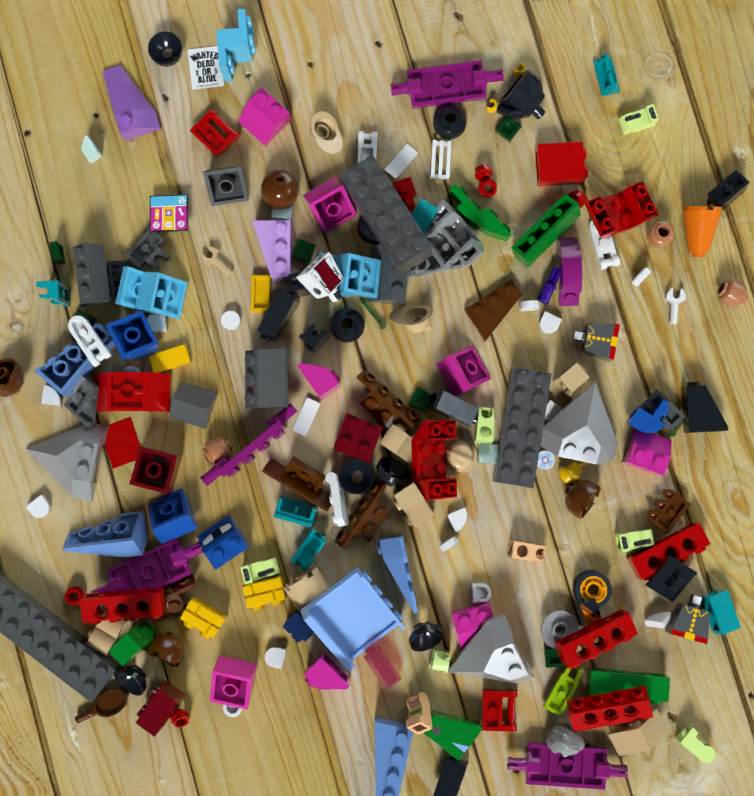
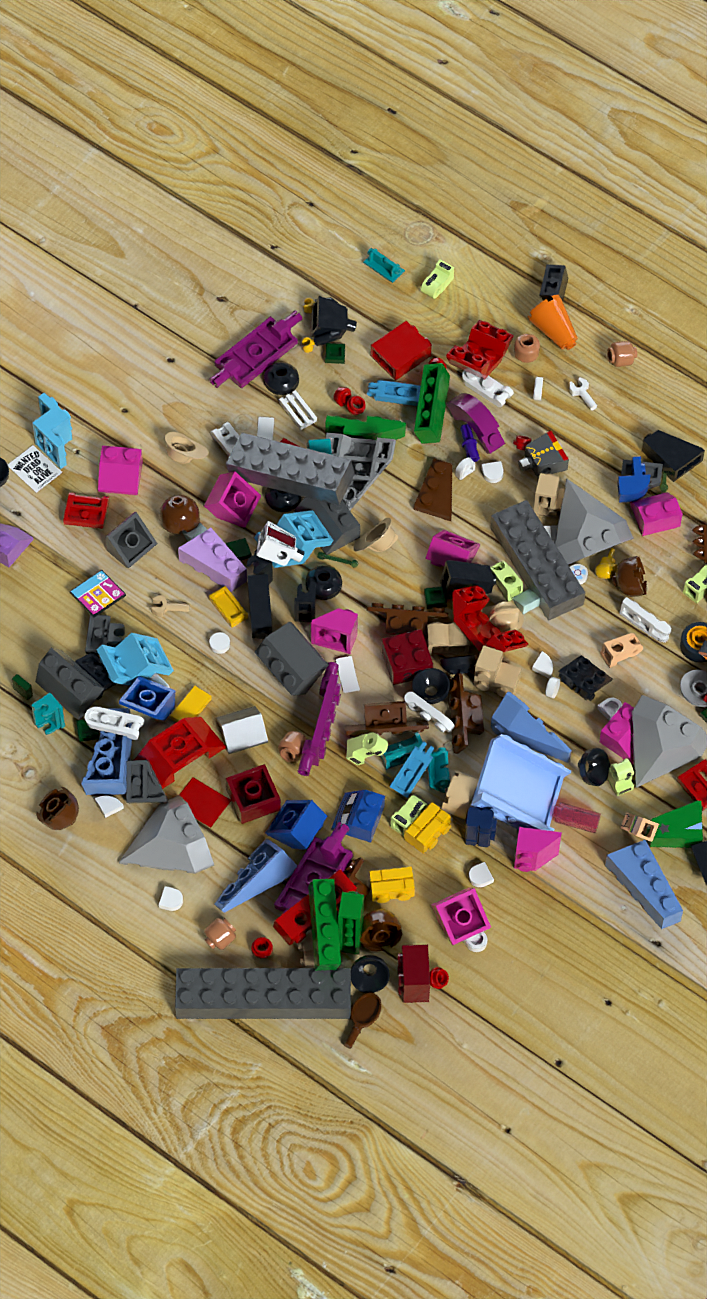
camera: 40 degrees left, 25 degrees down
(50, 564) = (220, 934): none -> nougat head
(110, 633) = (324, 924): none -> green brick
(267, 494) = (365, 746): none -> yellowish green leg
(287, 538) = (412, 770): none -> dark azure hinge
(481, 552) = (584, 676): none -> black hinge
(526, 198) = (394, 392): none -> dark azure hinge
(564, 540) = (645, 621): none -> white hinge
(591, 315) = (521, 442): none -> red plate

